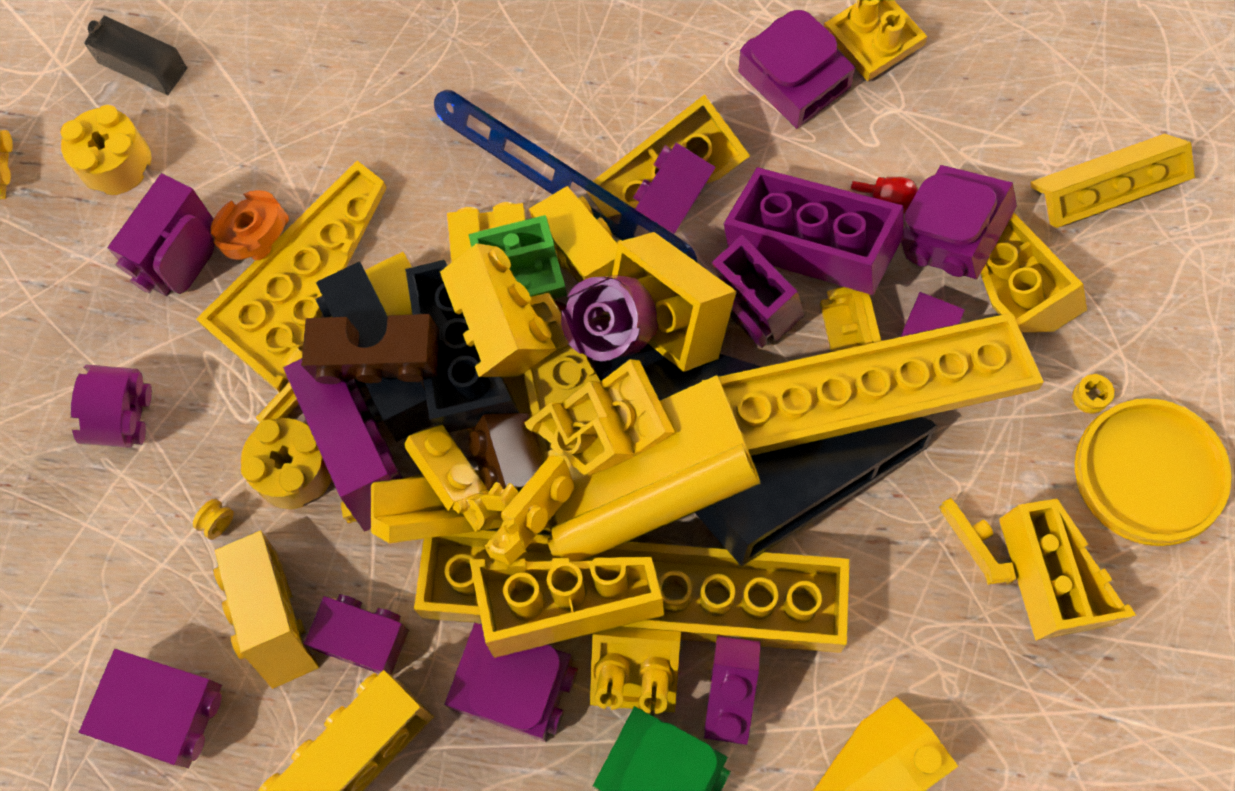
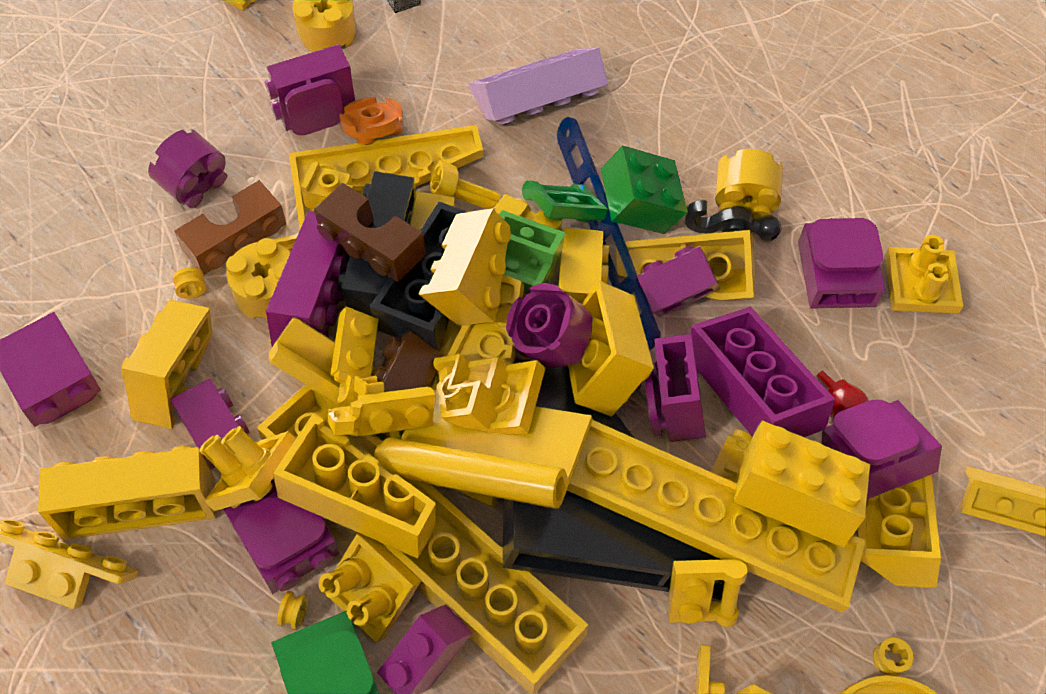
camera: 30 degrees right, 10 degrees down
(201, 466) = (212, 244): none -> dark orange arch
(273, 329) = (320, 183): none -> yellow brick
(380, 75) = (539, 84): none -> lavender slope
(381, 241) = (446, 182): none -> yellow piece
(443, 653) = (244, 466): none -> yellow plate
(508, 181) = (565, 201): none -> green plate
(571, 119) = (643, 190): none -> green brick
(580, 742) = (292, 610): none -> yellow bush
(661, 46) = (749, 181): none -> yellow brick
(672, 93) = (731, 220): none -> black piece
(905, 459) = (693, 589): none -> yellow plate
(932, 302) = (803, 484): none -> yellow brick

